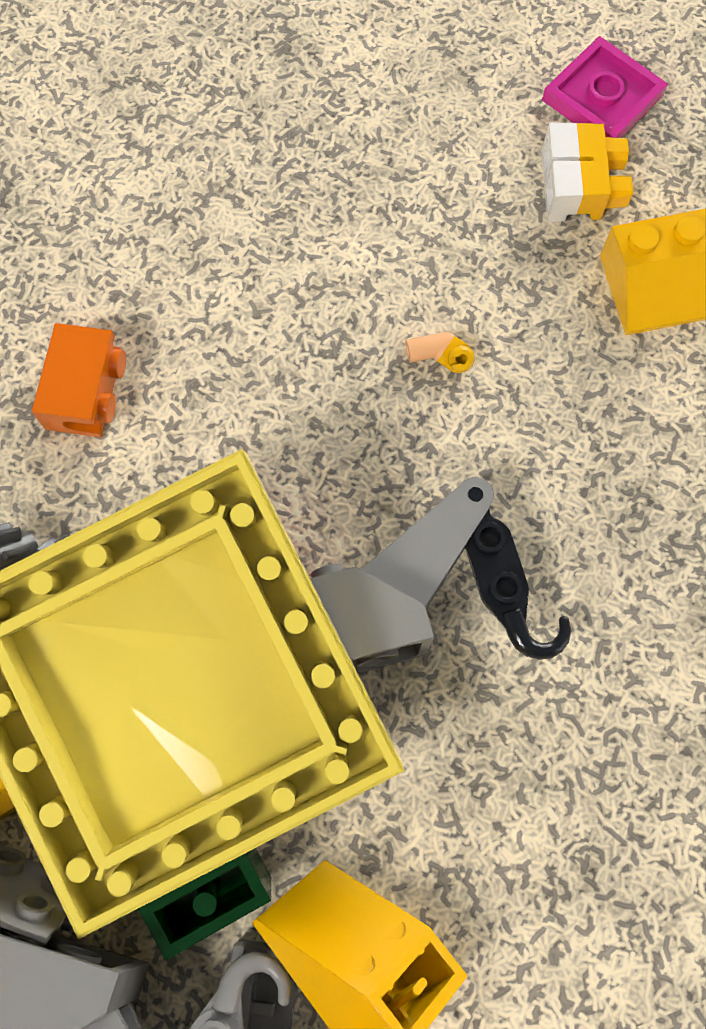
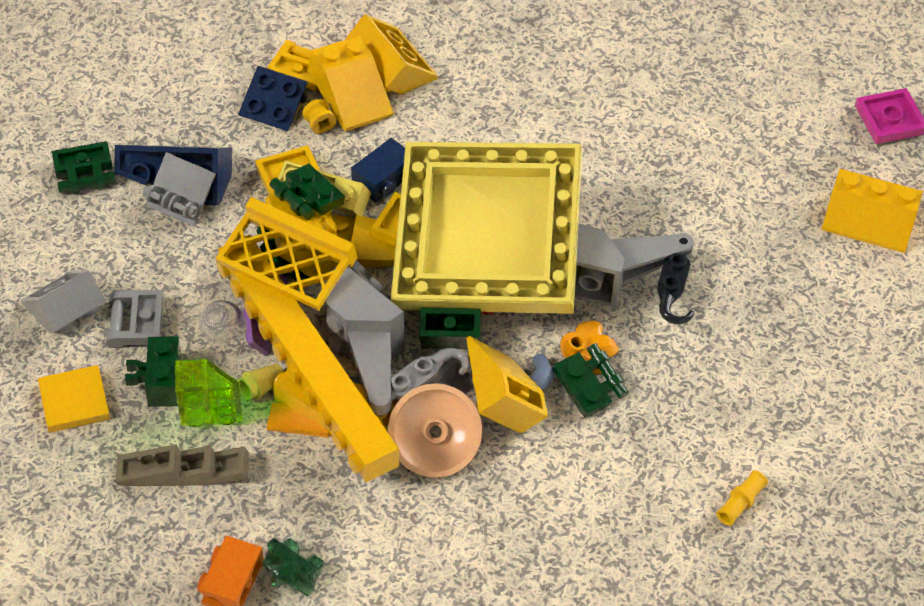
camera: 30 degrees right, 20 degrees down
(79, 380) = (521, 112): orange brick -> none
(401, 871) = (544, 373): none -> sand blue arm
(443, 348) = (716, 187): arm -> none
(443, 762) = (584, 336): none -> light orange plate
(471, 852) = (582, 384): none -> dark green plate
(577, 171) = (847, 141): hips -> none

